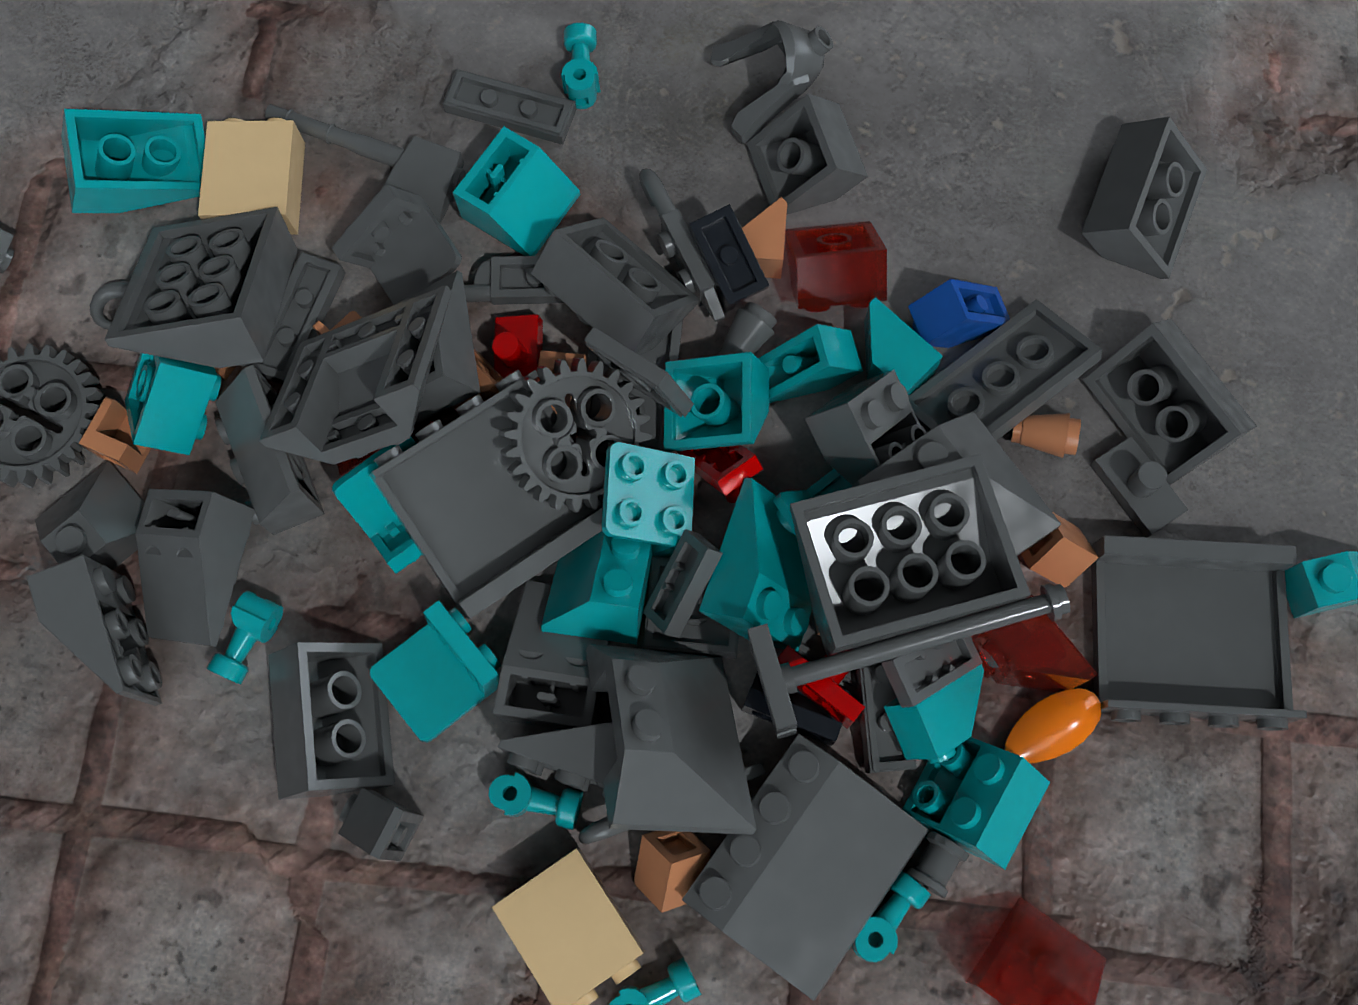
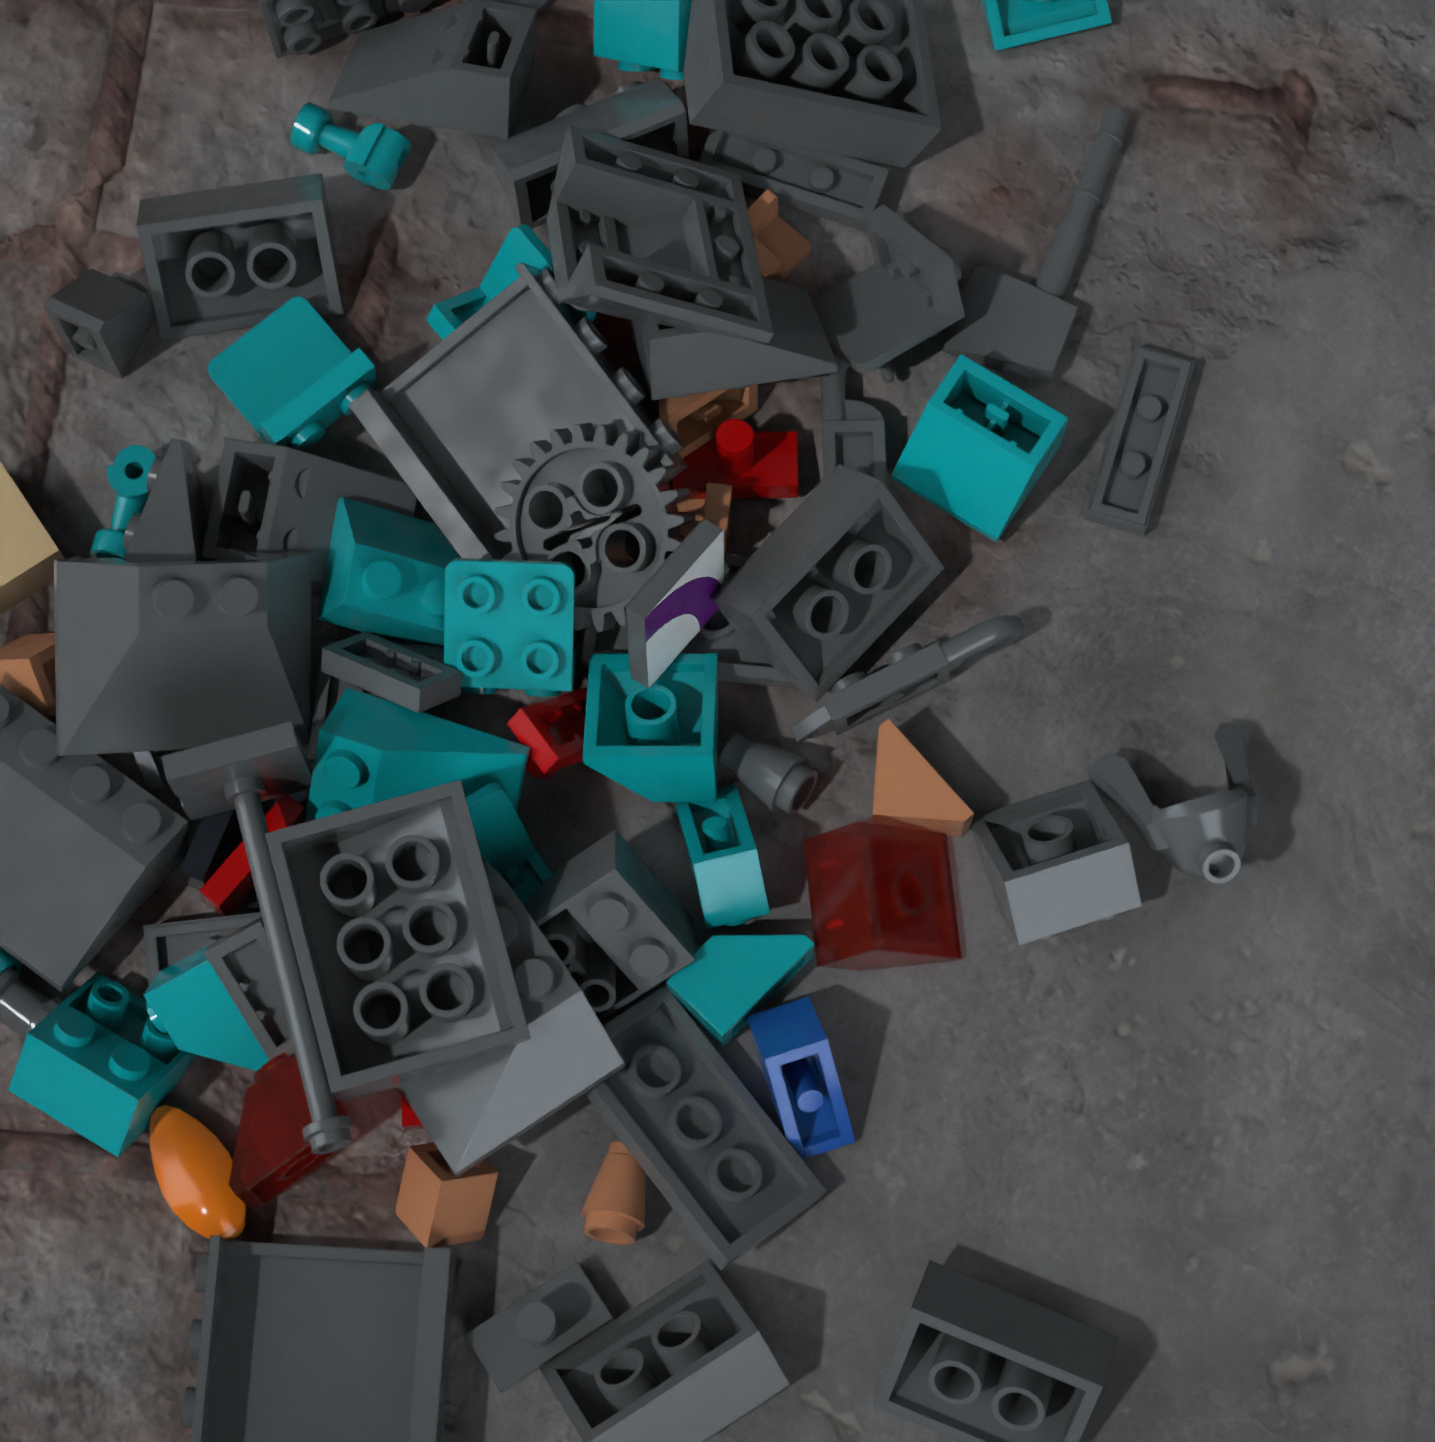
camera: 90 degrees right, 0 degrees up
(252, 169) = (1010, 97): tan brick -> none
(580, 74) = (1180, 532): teal leg -> none
(728, 257) = (871, 733): black panel -> none

